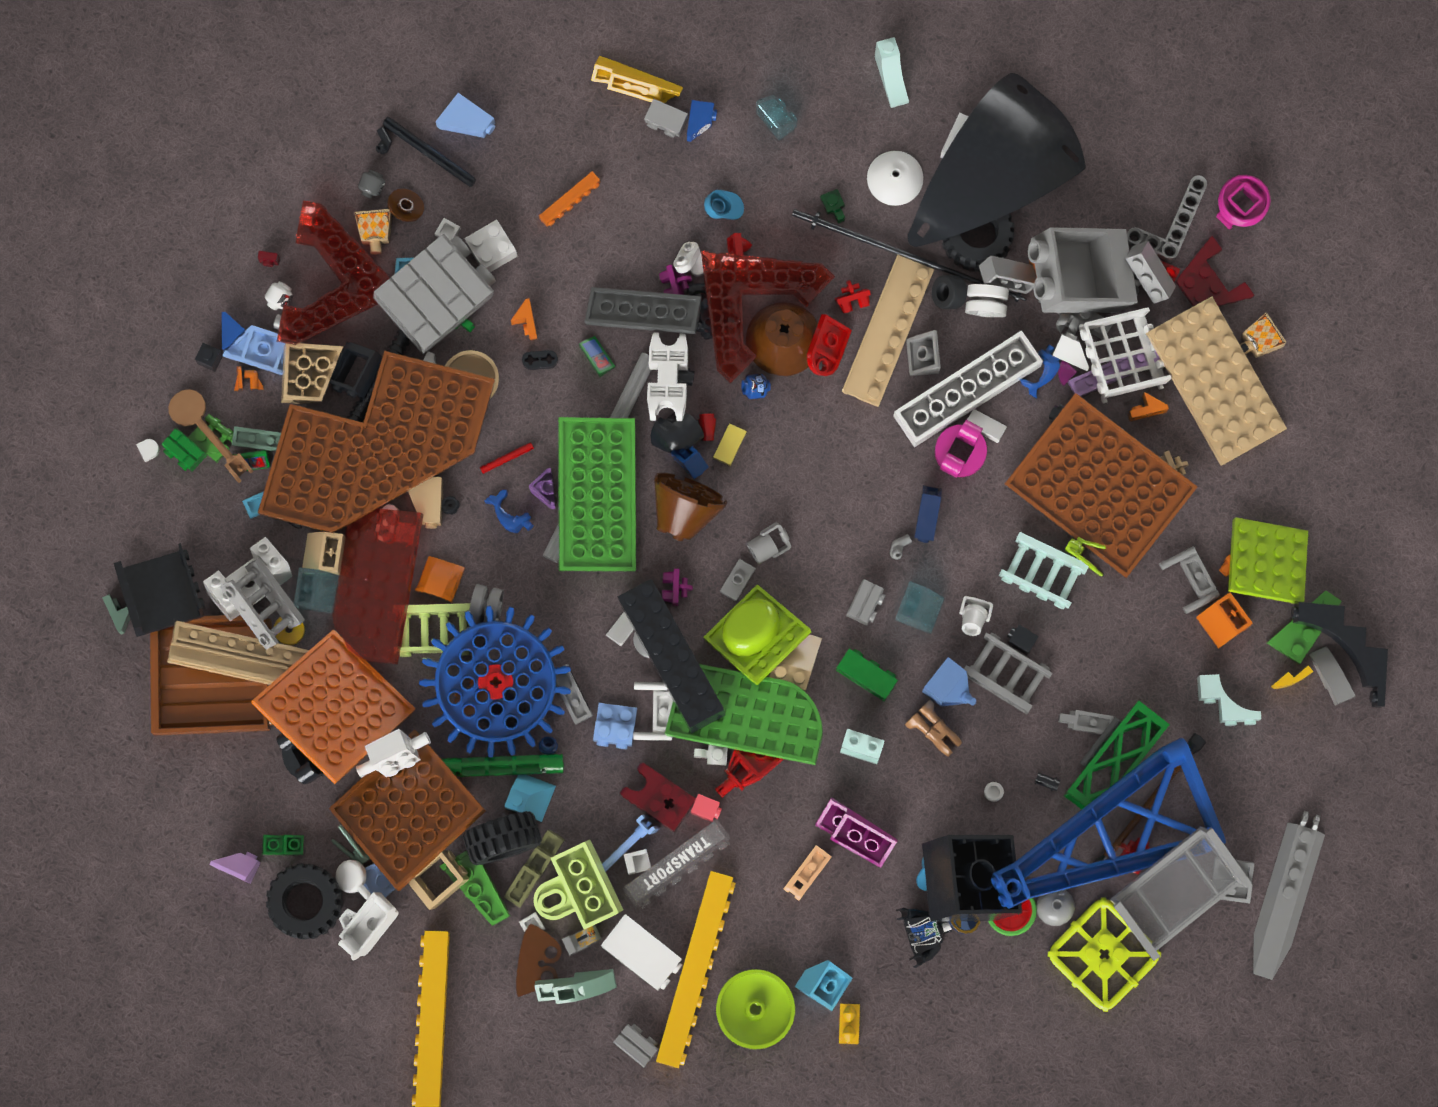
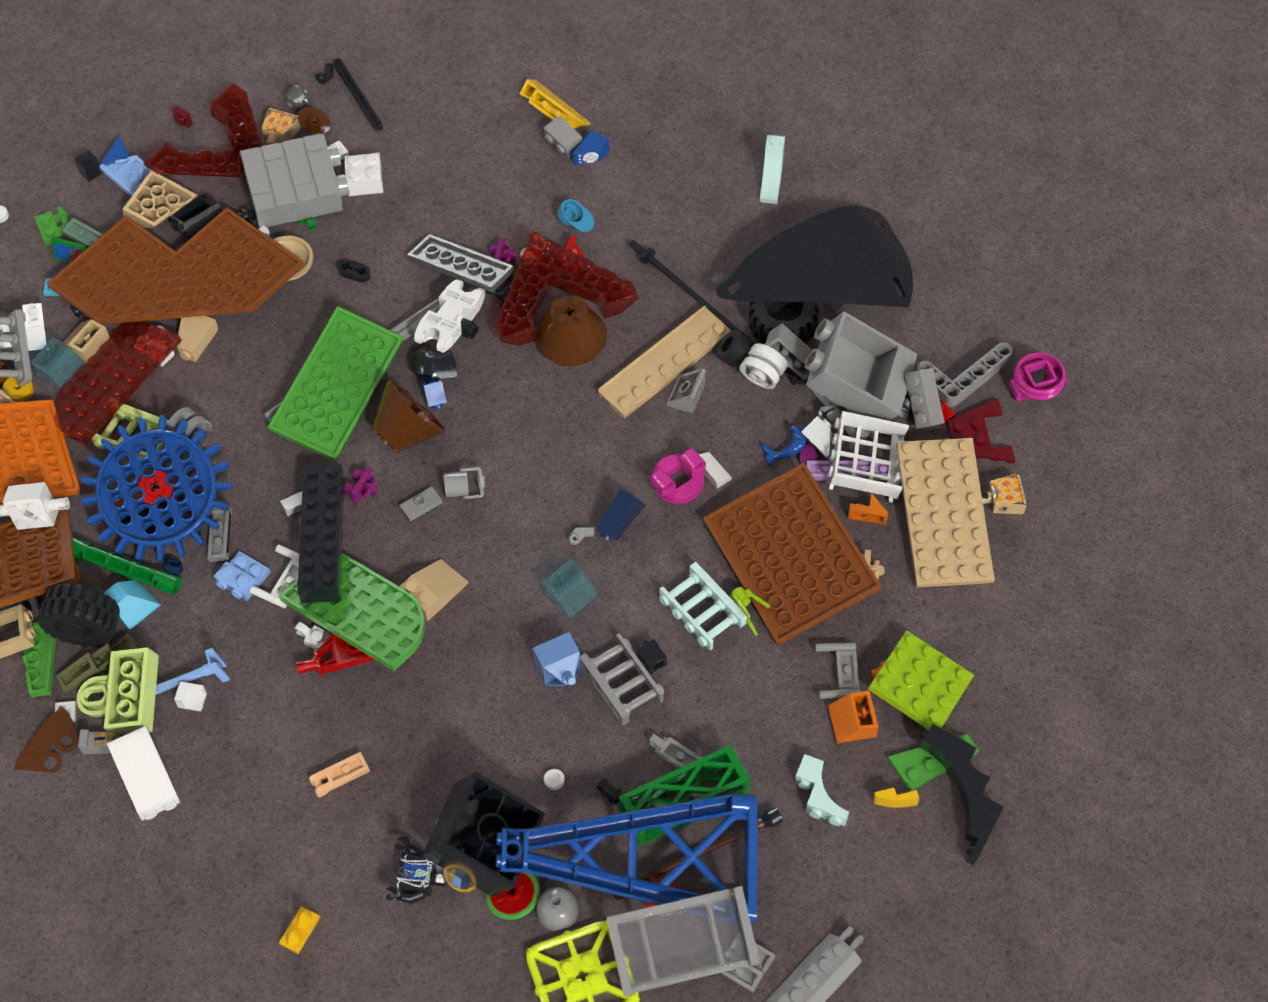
camera: 25 degrees right, 20 degrees down
(184, 450) = (24, 223): green brick -> none
(188, 409) = (46, 197): medium nougat piece -> none
(254, 381) = (115, 194): orange piece -> none
(278, 295) = (174, 140): white head -> none
(440, 578) = (166, 399): orange slope -> none
(450, 500) = (211, 344): black plate -> none
(465, 118) = (399, 80): light blue slope -> none
(507, 457) = (281, 332): red bar -> none
(510, 523) = (253, 381): blue animal -> none
(524, 315) = (360, 234): orange slope -> none
(543, 488) = (294, 359): medium lavender slope -> none
(567, 201) = (450, 166): orange piece -> none
(576, 988) = (68, 779): sand green slope -> none
(596, 356) = (403, 286): slope -> none
(636, 1045) = (90, 857): light grey brick -> none
(656, 791) = (243, 652): dark red brick -> none
(676, 864) = (224, 713): clear brick -> none
(686, 257) = (518, 241): white plate -> none
(694, 970) = (183, 814): yellow brick -> none
(706, 808) = (279, 677): coral brick -> none
(707, 423) = (465, 372): red cone -> none
(729, 444) = (476, 396): light yellow tile -> none
(755, 386) = (524, 358): blue head -> none
(755, 1009) = (217, 873): lime dish -> none
(757, 634) = (409, 548): lime piece -> none
(775, 116) = (656, 168): clear light blue slope -> none
(824, 983) = (297, 880): medium azure slope -> none
(827, 345) = (604, 348): red tile -> none
(833, 203) = (670, 251): dark green plate -> none
(844, 301) = (646, 322): red hips -> none
(855, 833) = (403, 757): magenta slope -> none
(862, 746) = (450, 680): light aqua panel -> none
(865, 602) = (523, 566): light grey brick -> none
(867, 674) = (491, 626): green brick -> none
(893, 189) = (730, 250): white dish -> none
(937, 732) = (528, 703): medium nougat piece -> none
(968, 388) = (711, 429): white brick -> none
(974, 615) = (617, 616): white piece -> none
(1332, 676) = (937, 814): light grey slope -> none

